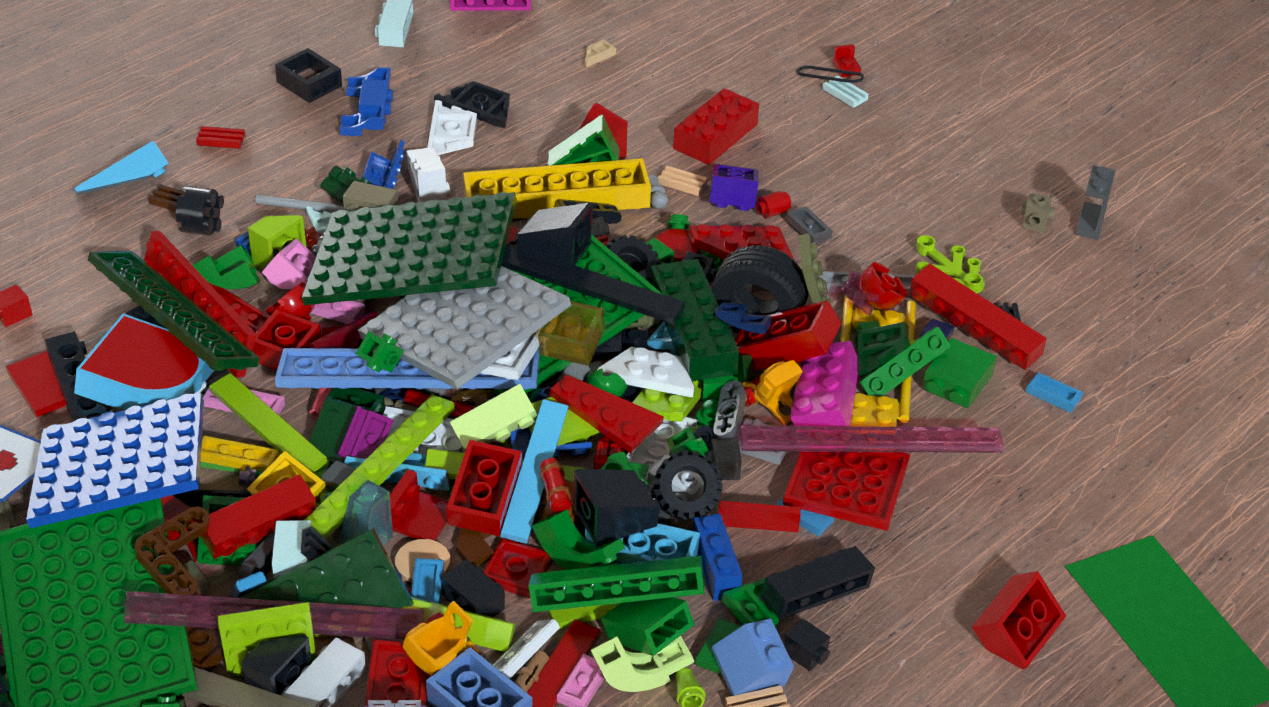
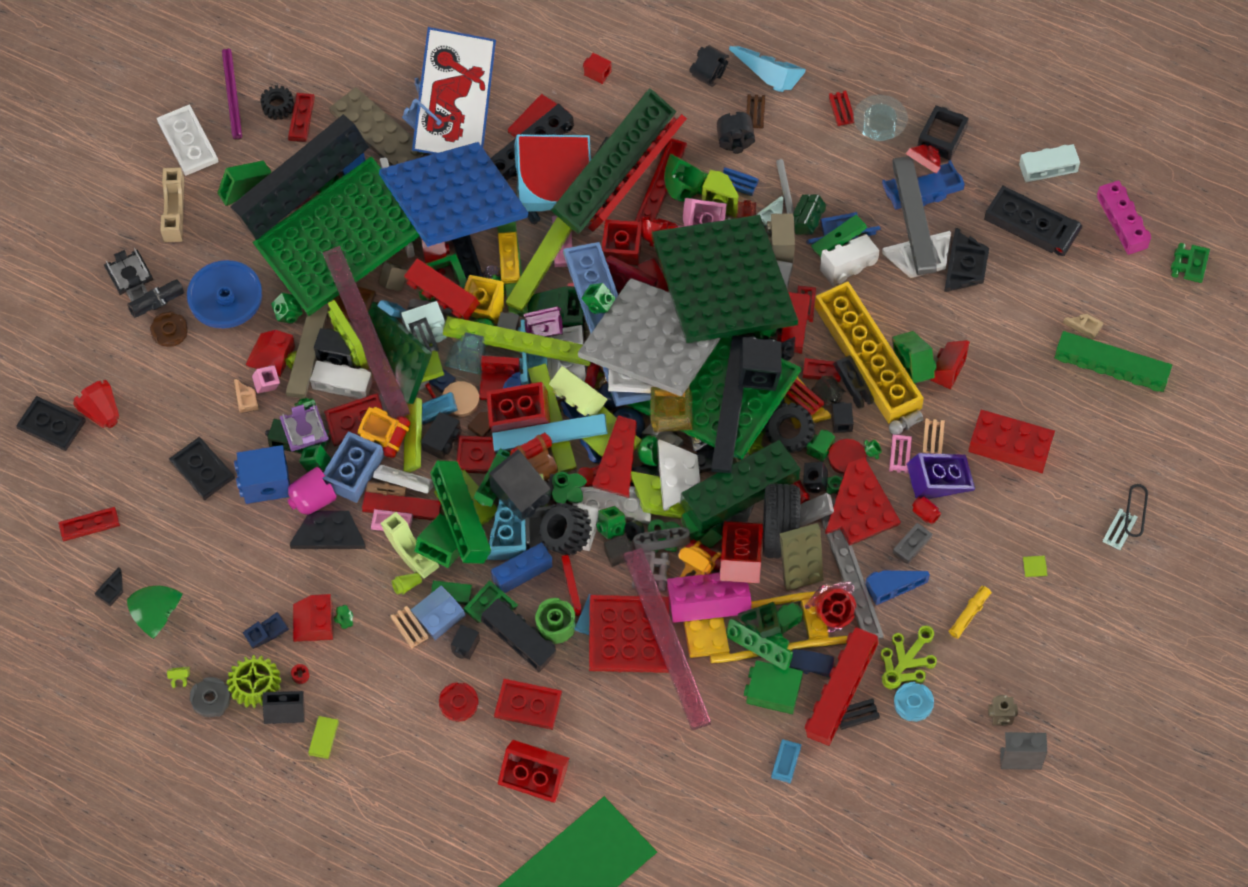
camera: 75 degrees right, 20 degrees up
(89, 207) = (709, 65): none -> black brick
(164, 548) = (382, 249): reddish brown beam -> none
(262, 107) = (880, 117): none -> clear light blue hose
(342, 78) = (926, 156): none -> red wing
(400, 165) = (840, 235): none -> green tile
(409, 106) = (914, 215): none -> dark grey beam
(432, 497) = (513, 381): none -> blue tile
(459, 47) = (1032, 221): none -> black hinge
(627, 226) = (842, 417): none -> black brick
(652, 43) = (1113, 361): none -> green brick
(694, 209) = (898, 467): none -> bright pink tile
(737, 316) = (737, 515): dark blue slope -> none
(808, 536) = (558, 630): none -> bright green brick
(844, 59) = (1164, 519): red bracket -> none
(856, 250) = (890, 584): none -> blue slope
(865, 156) = (1035, 566): none -> lime sticker
(891, 680) = (458, 701): none -> red tile
(901, 202) = (974, 605): none -> yellow pin
(918, 603) = (528, 704): none -> red plate
(1003, 277) = (913, 701): none -> medium azure tile

